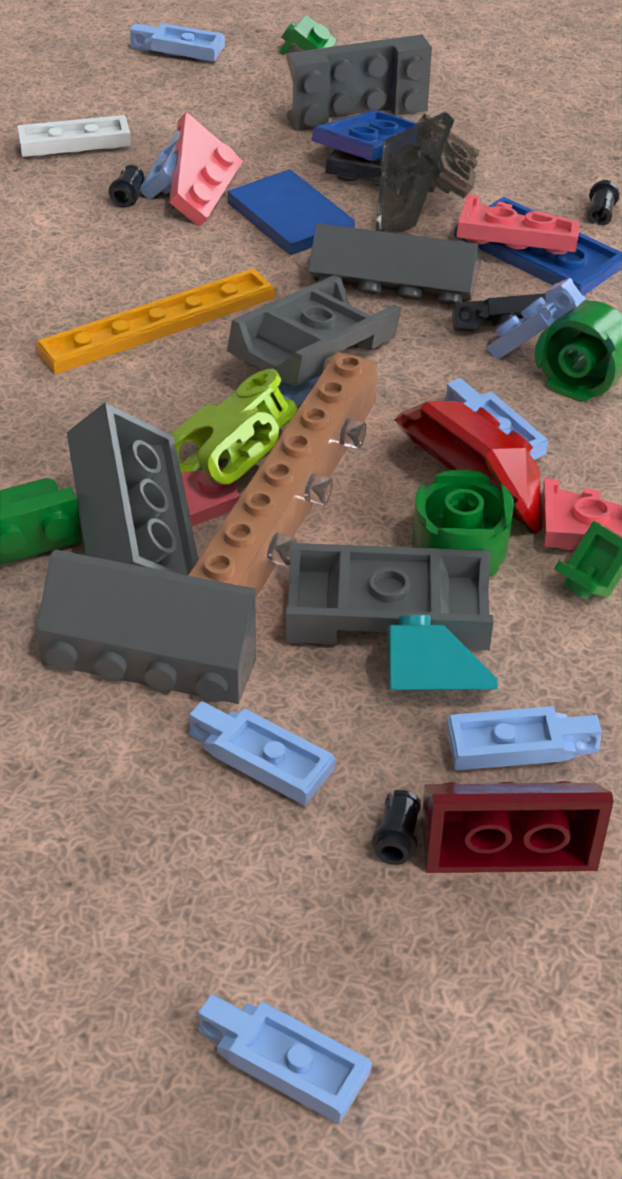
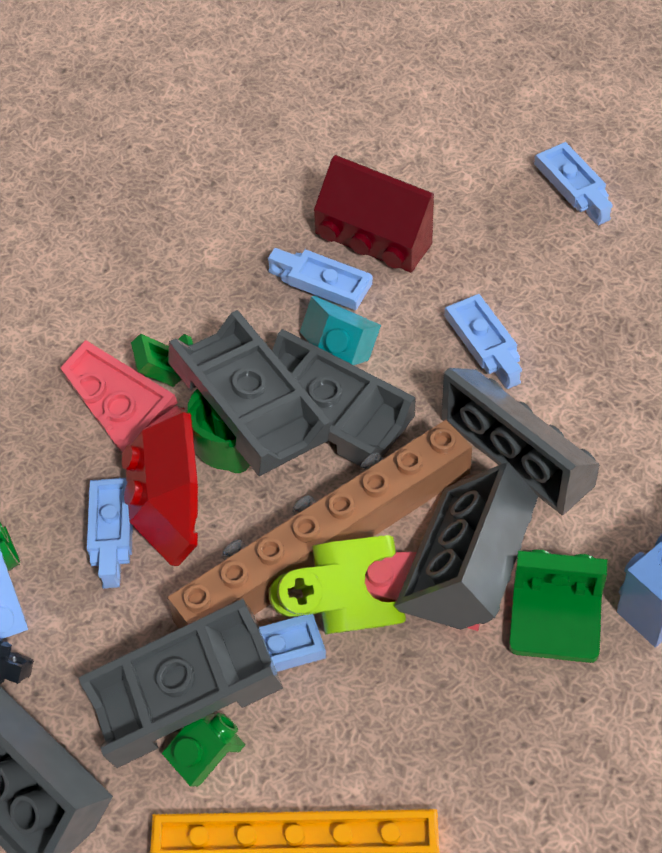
camera: 145 degrees left, 10 degrees up
(395, 838) = (441, 254): black pin -> none
(459, 507) = (252, 394): none -> dark grey piece

